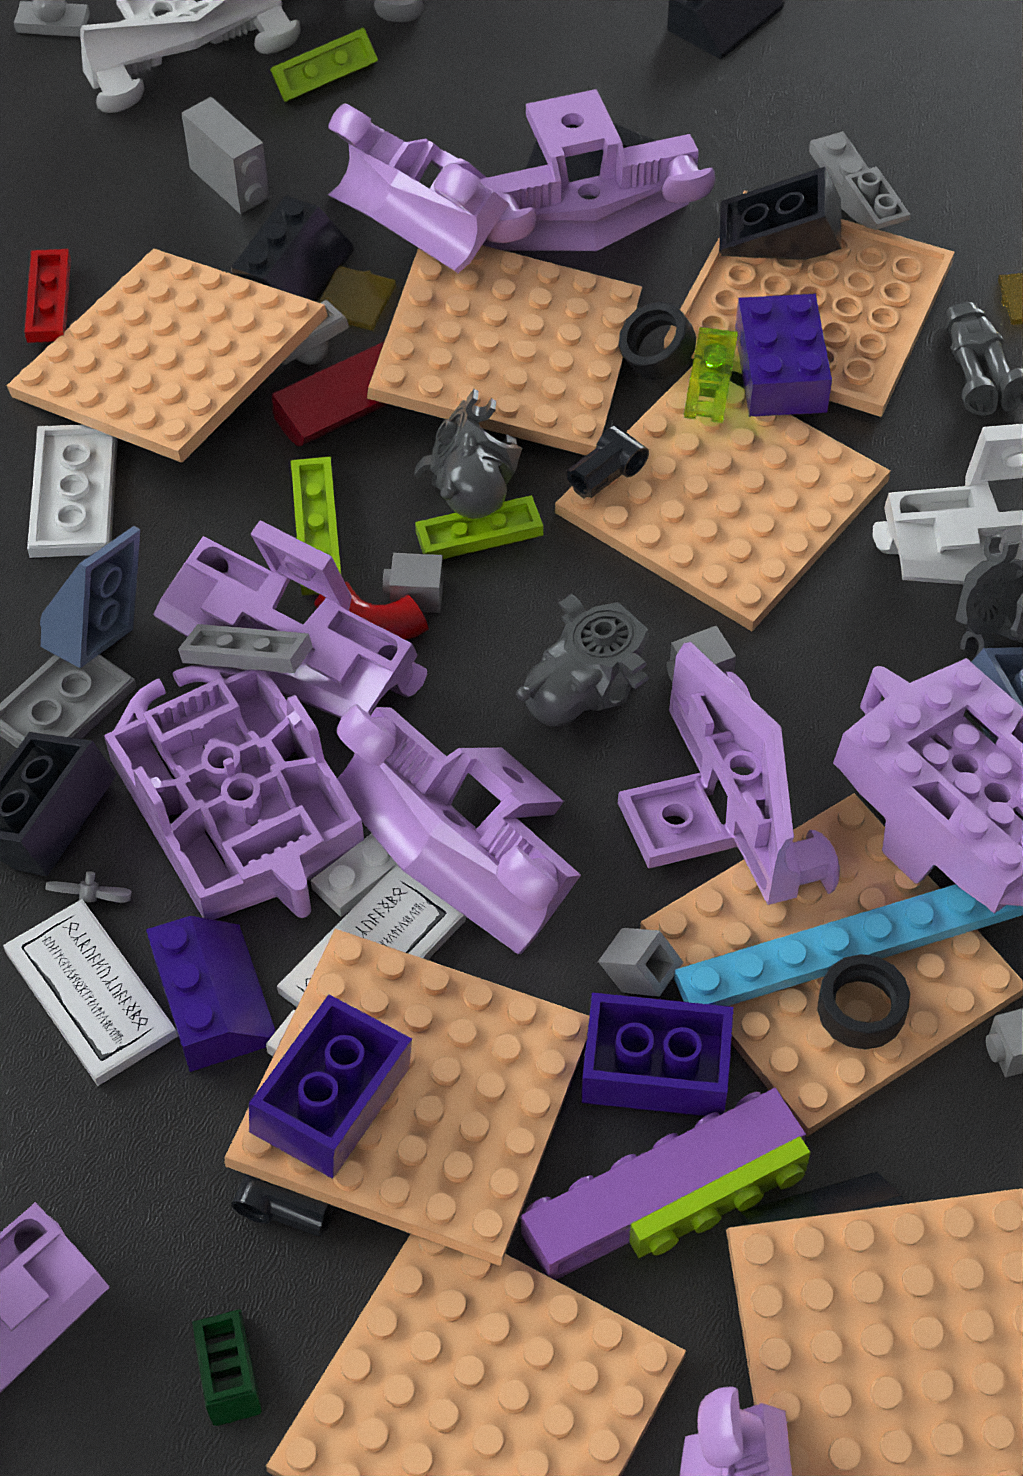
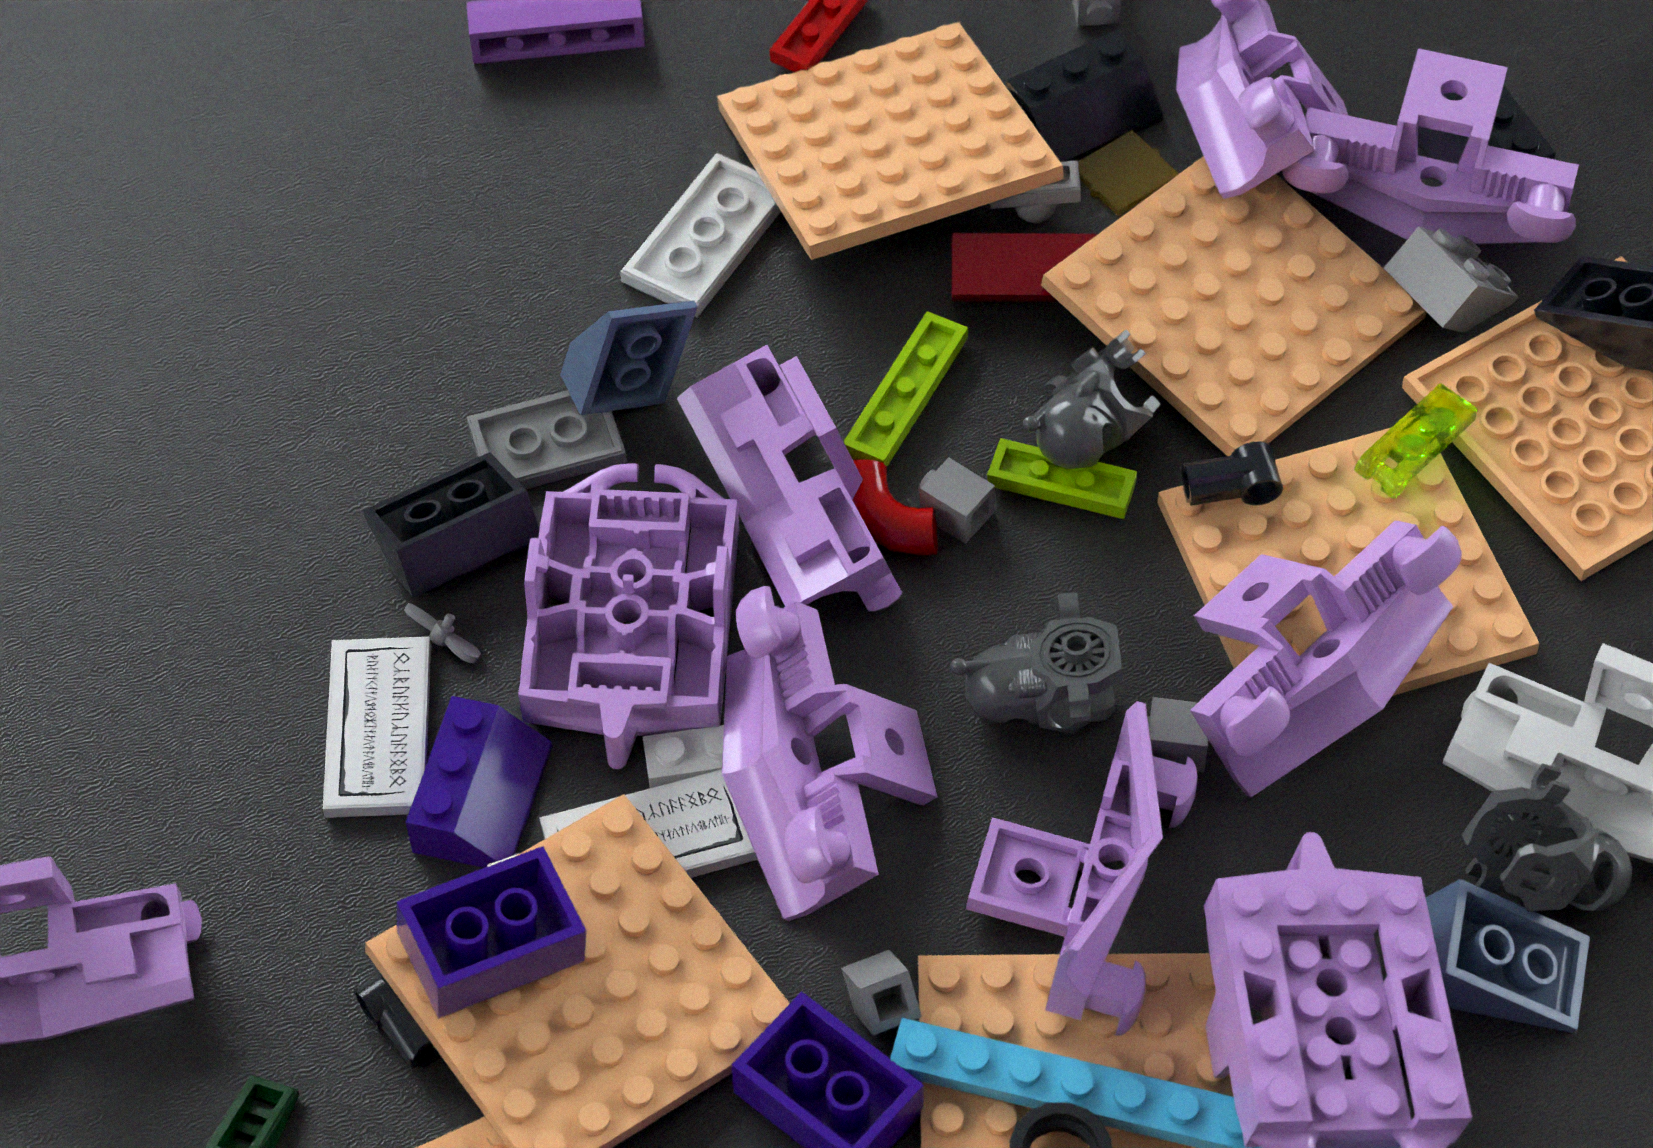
camera: 35 degrees right, 0 degrees up
(245, 648) = (730, 477): light grey plate -> none
(640, 324) = (1375, 356): black tyre -> none
(643, 262) = (1450, 279): none -> light grey slope
(766, 590) = (1377, 622): none -> lavender piece
(783, 355) = (1505, 457): dark purple brick -> none

